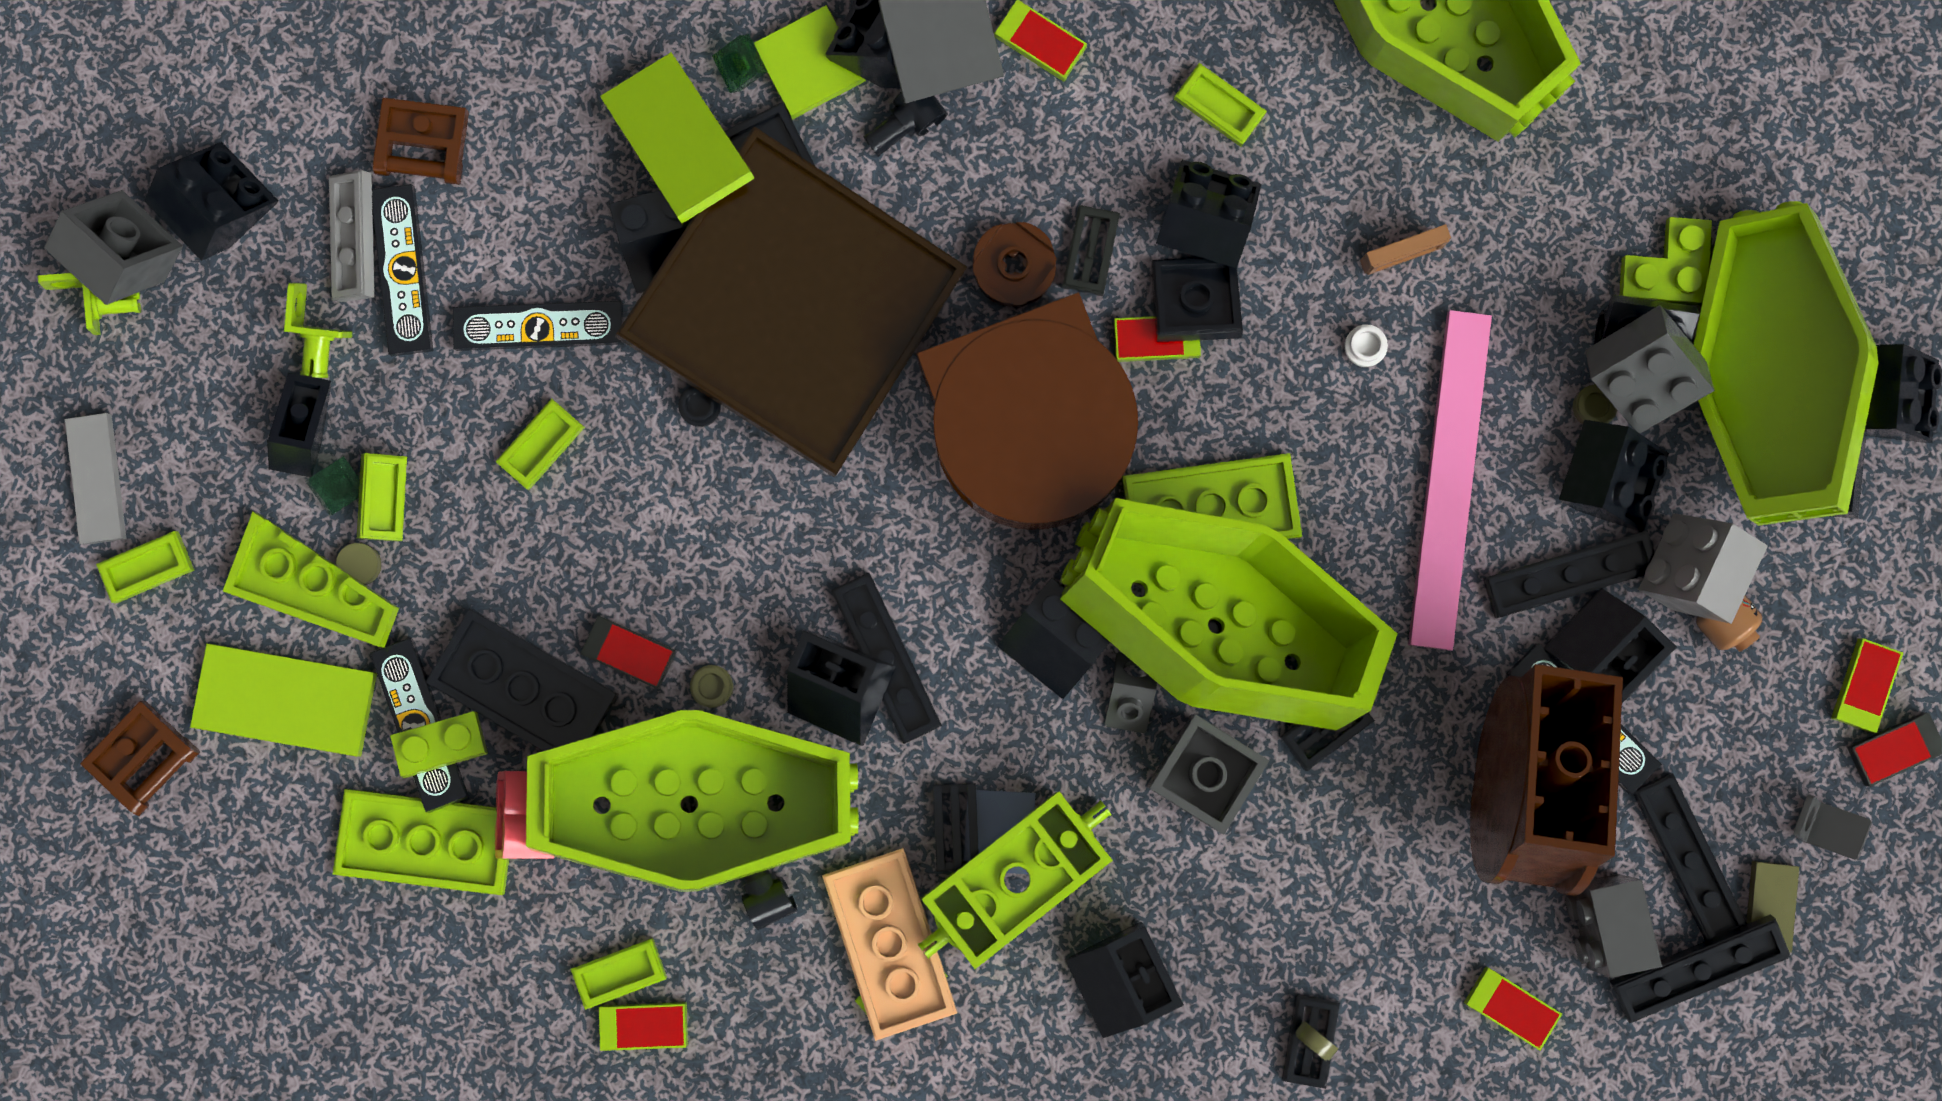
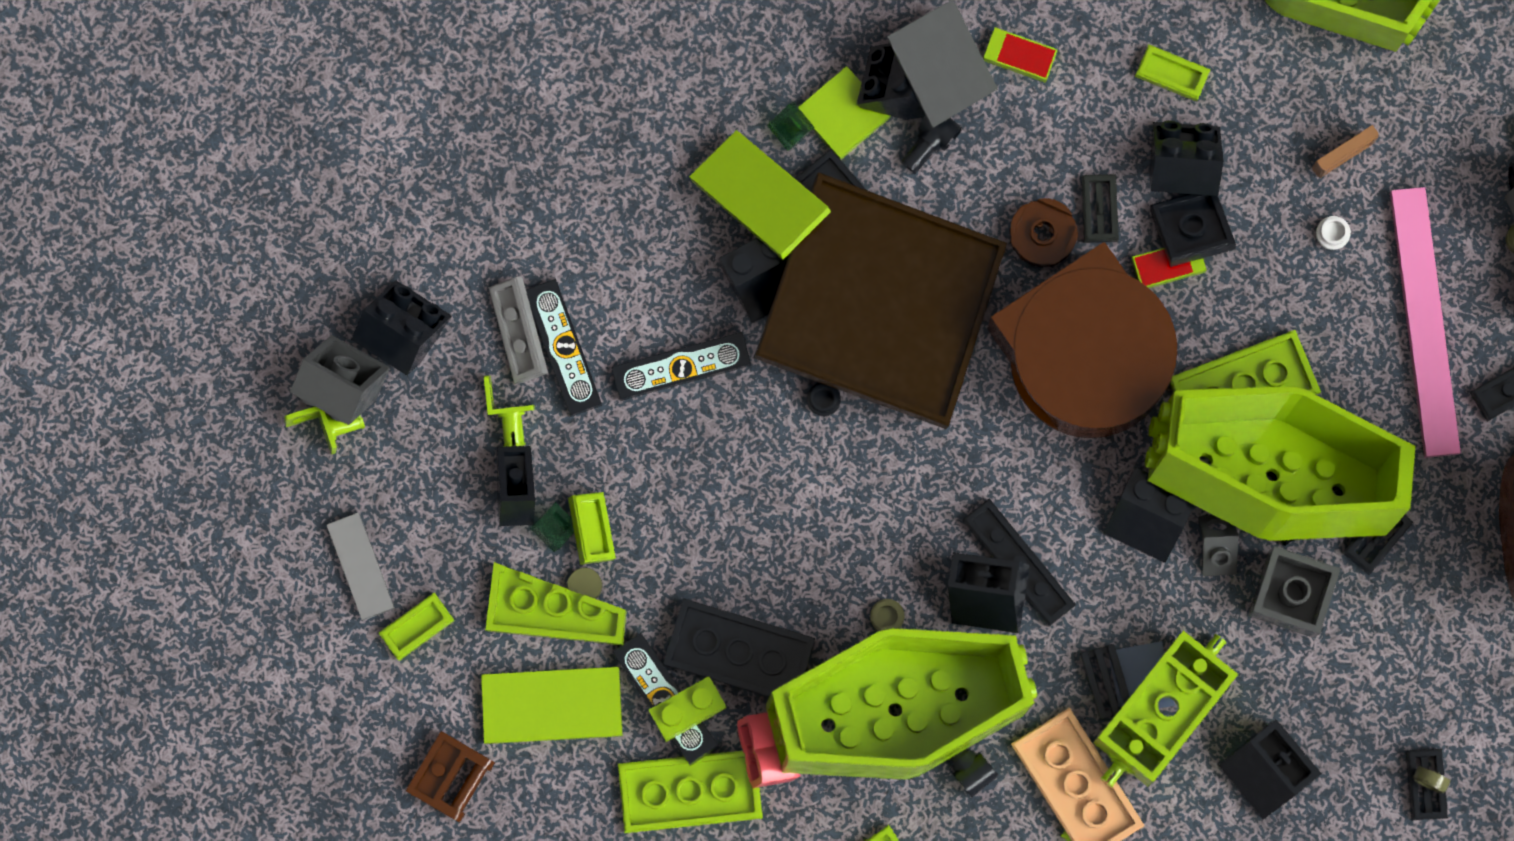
camera: 10 degrees left, 5 degrees down
(423, 127) = (554, 232): reddish brown plate -> none
(540, 444) = (705, 458): lime tile -> none
(628, 652) = (815, 604): red tile -> none

